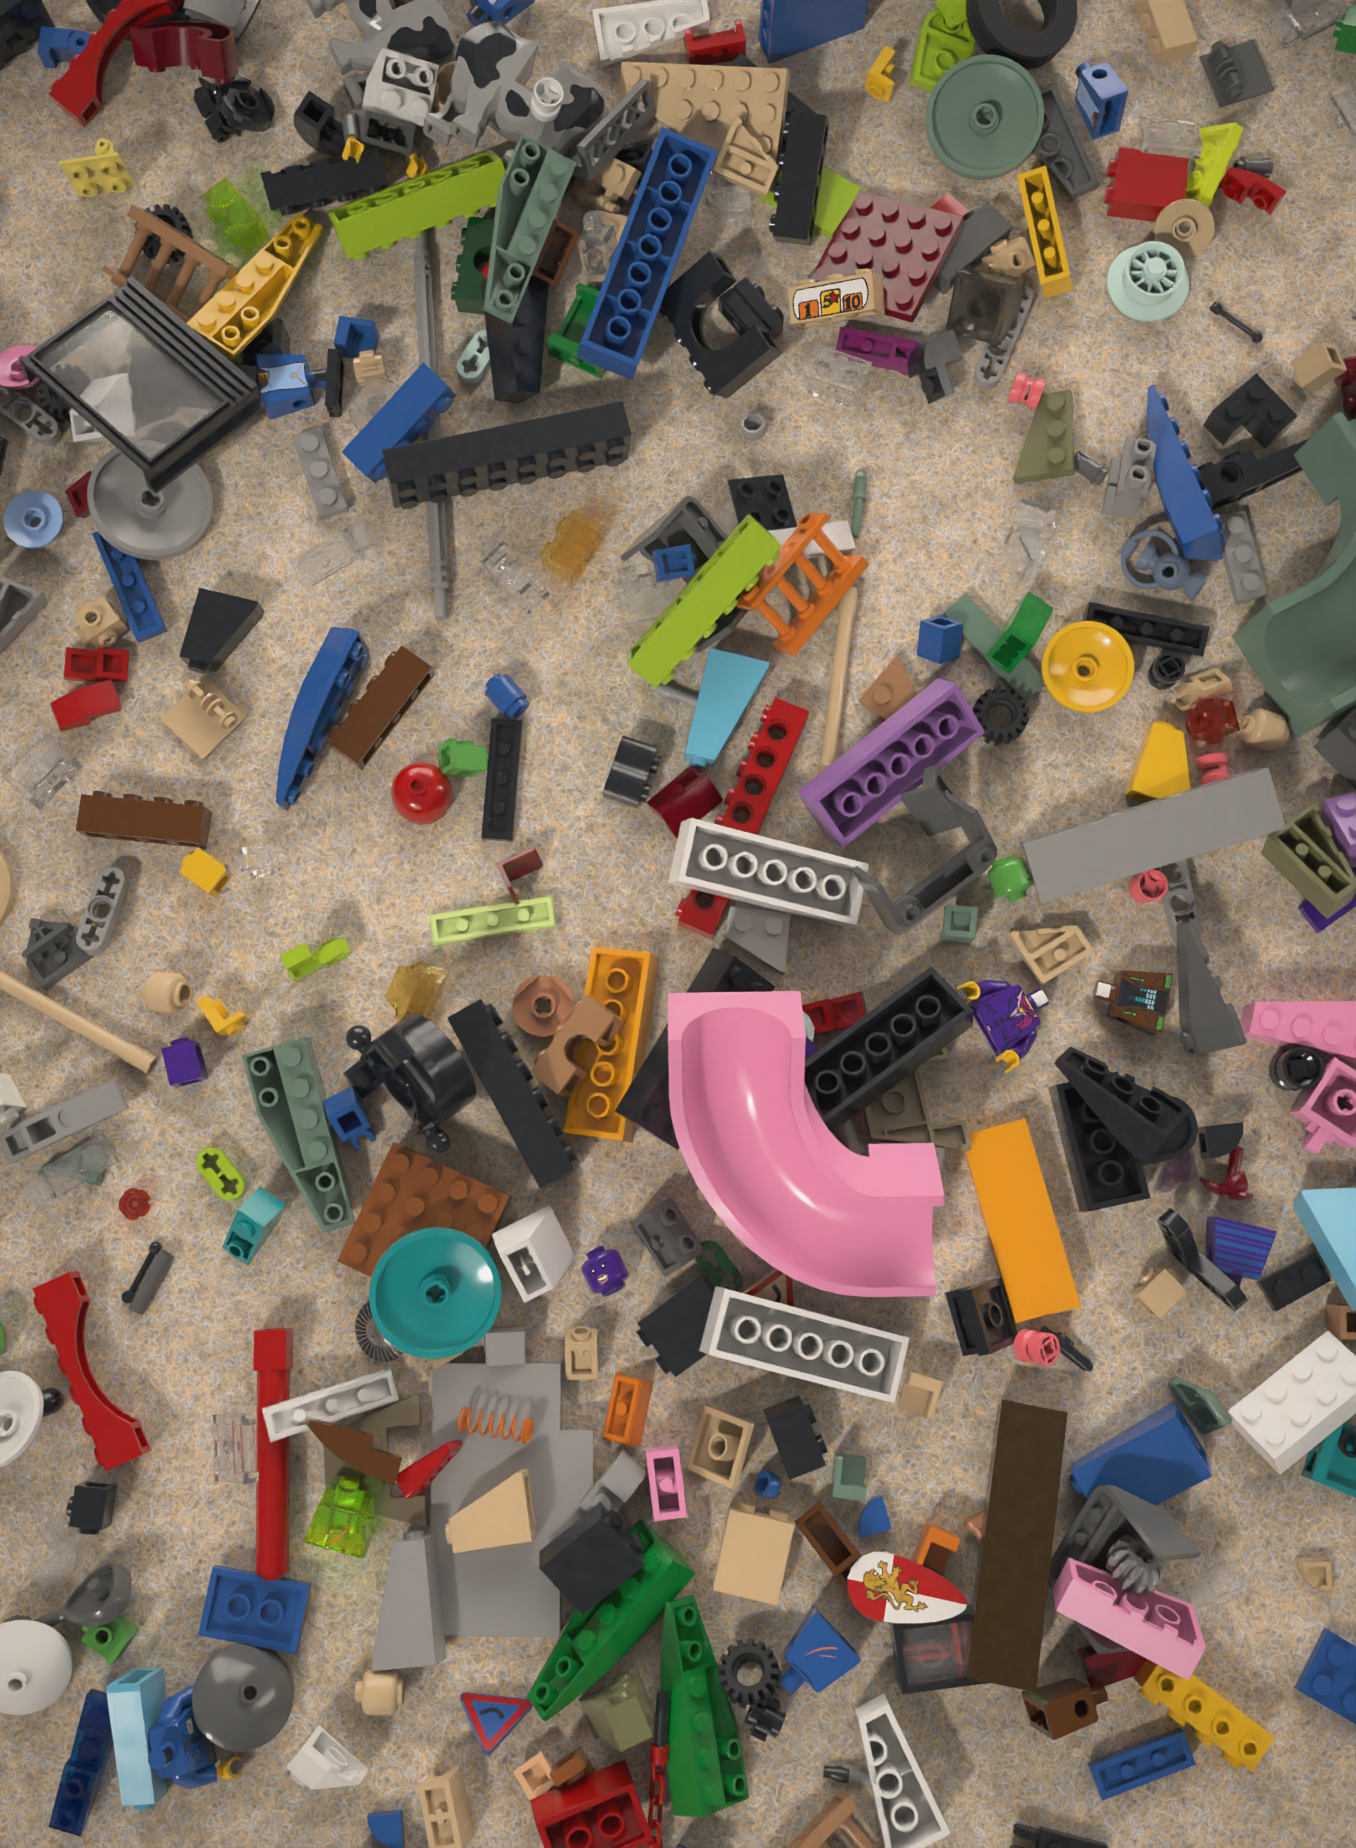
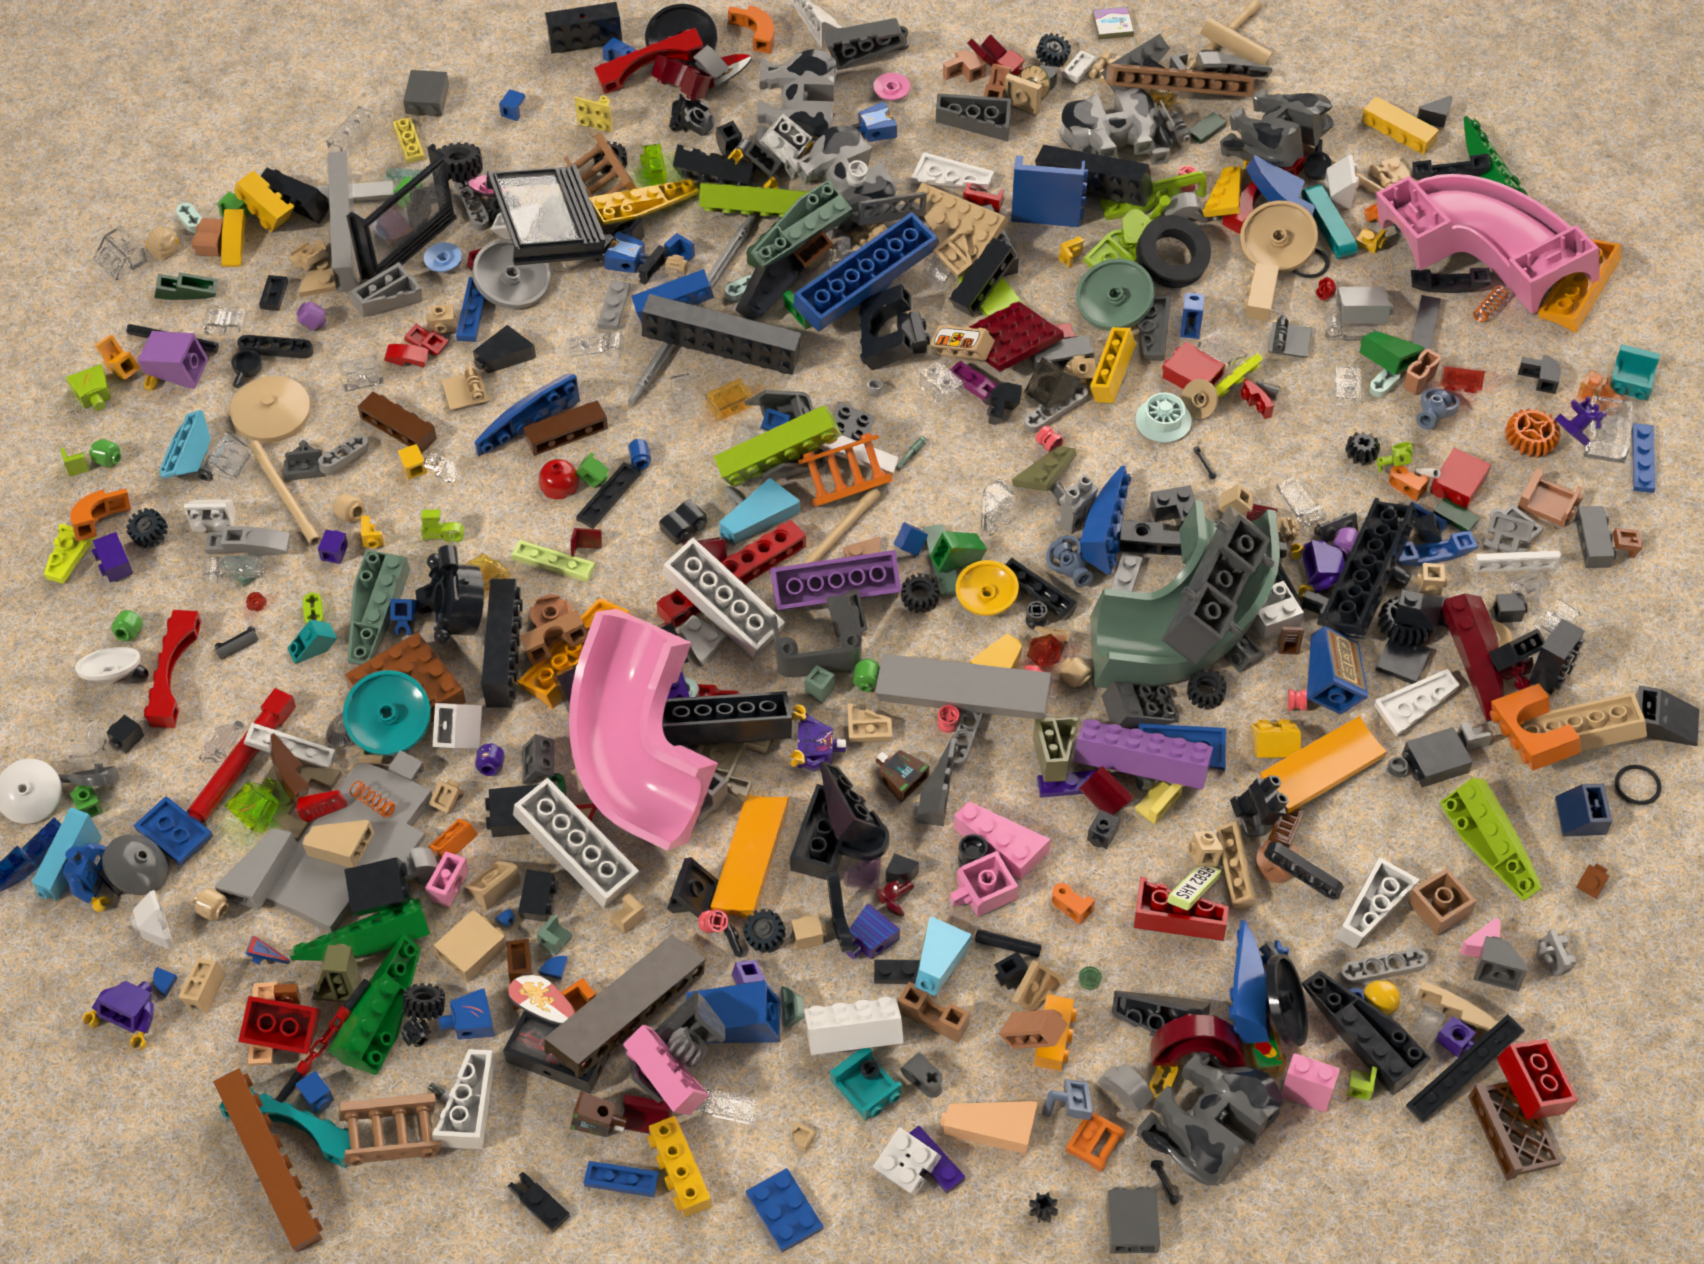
camera: 30 degrees right, 25 degrees down
(1106, 1322) = (764, 930): none -> black wheel
(1136, 1399) = (747, 972): none -> brick

